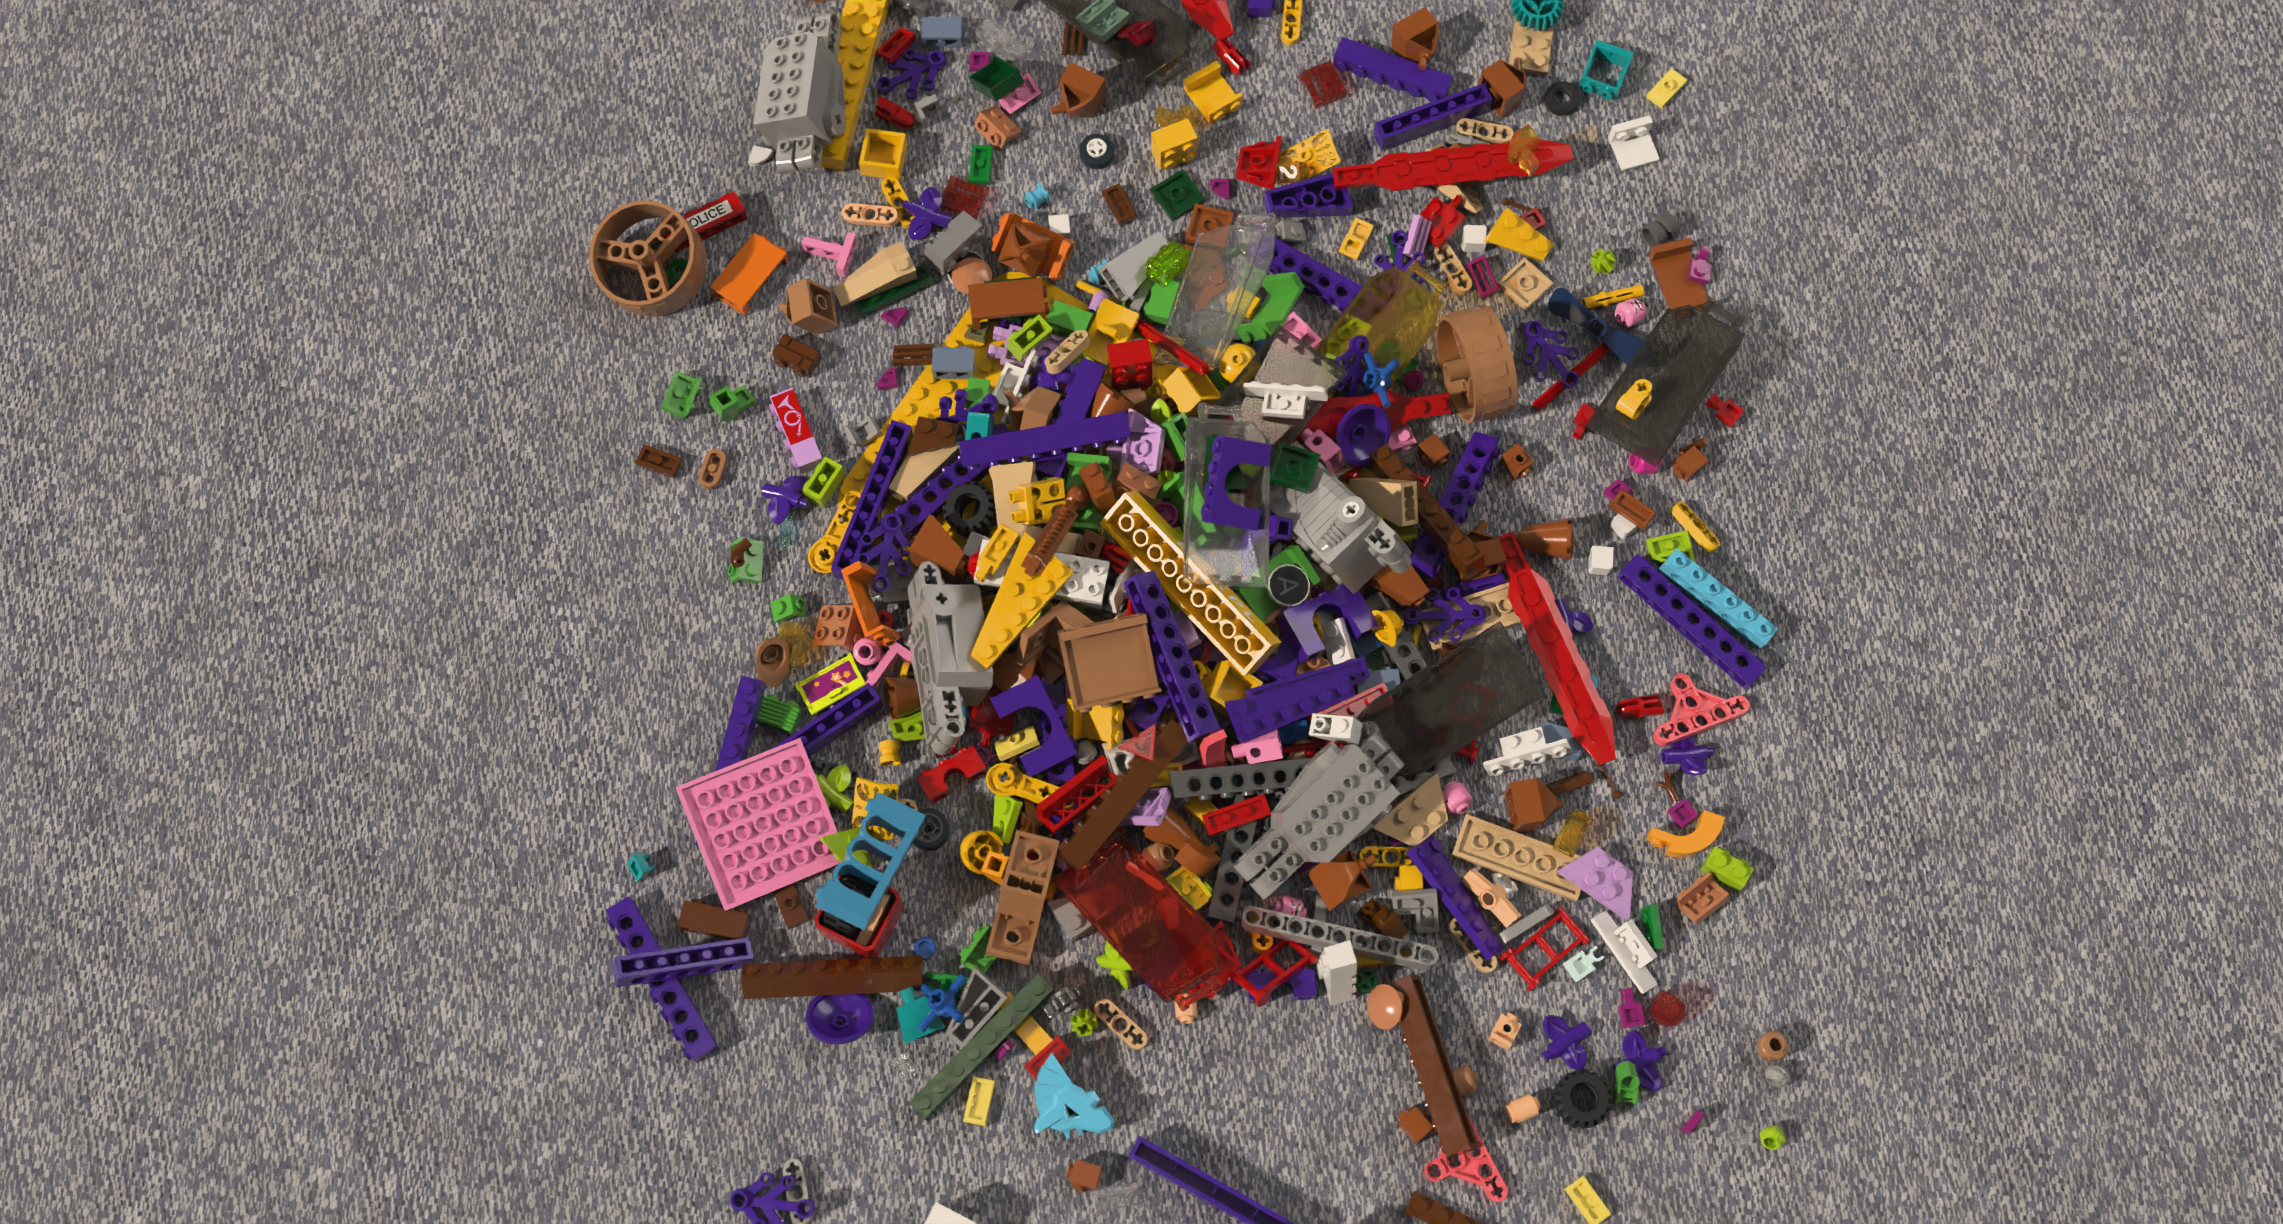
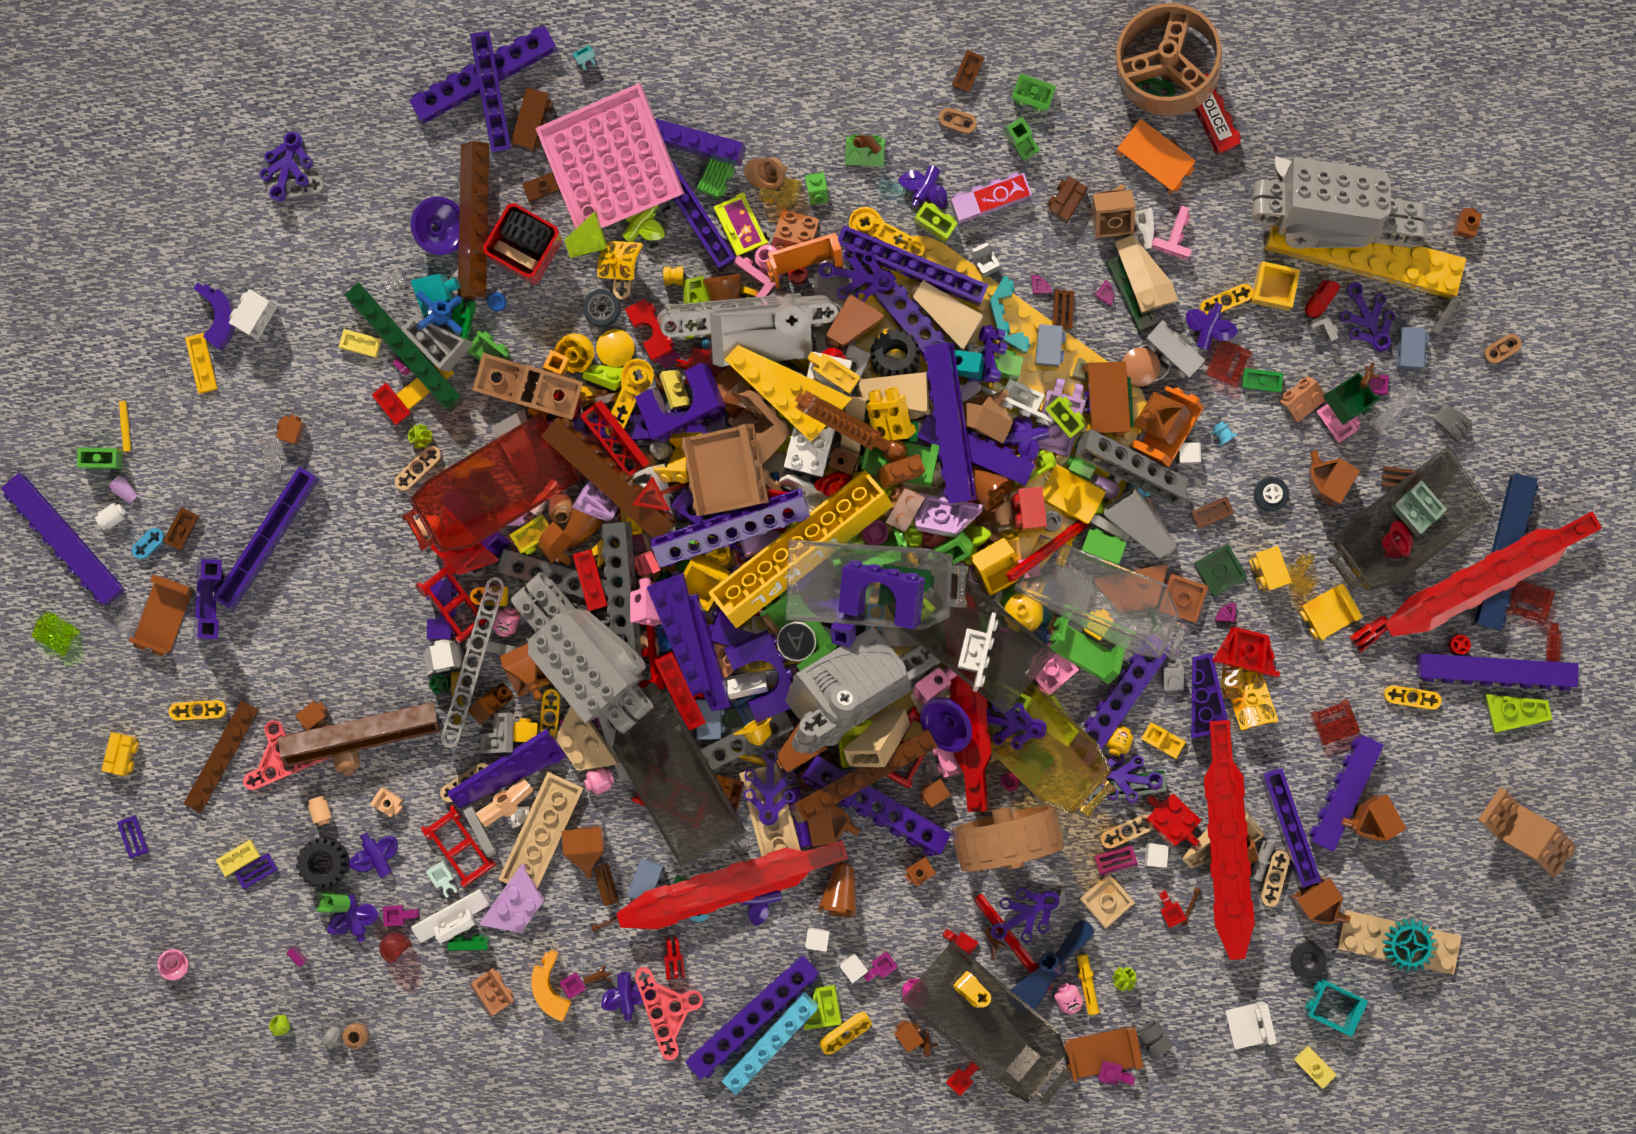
camera: 95 degrees right, 15 degrees up
(827, 278) = (1144, 227): none -> white slope
(848, 904) = (519, 226): dark azure fence -> none
(863, 209) = (1208, 265): light nougat beam -> none
(894, 408) = (1004, 291): none -> teal slope
(898, 46) = (1397, 305): red tile -> none
(933, 435) = (970, 322): reddish brown wing -> none
(972, 67) = (1368, 376): none -> reddish brown bar
(972, 812) = (615, 348): none -> yellow dish
(1055, 1091) = (348, 417): medium azure animal -> none
(1067, 1000) = (437, 421): dark grey gear -> none
(1075, 343) = (1057, 453): tan beam -> none
(1078, 273) = (1131, 467): none -> dark grey brick
(1167, 263) = (1137, 553): clear neon green brick -> none
(1293, 467) = (901, 651): dark green tile -> none
(1336, 728) = (656, 673): white slope -> none
(1359, 274) = (1120, 741): none -> yellow head
(1378, 379) = (999, 742): blue bar -> none
(1385, 1006) = (413, 698): nougat dish -> none
(1417, 236) = (1156, 798): lavender tile -> none
(1517, 235) = (1154, 896): yellow wing -> none
(1521, 148) = (1239, 905): clear yellow brick -> none
(1524, 750) = (637, 847): white bracket -> none
(1573, 833) = (558, 882): clear yellow brick -> none
(1581, 388) = (994, 943): none -> reddish brown bar
(1618, 1191) = (270, 862): none -> dark purple tile
(1632, 509) = (861, 974): dark orange tile -> none
(1726, 868) = (519, 1013): lime brick -> none

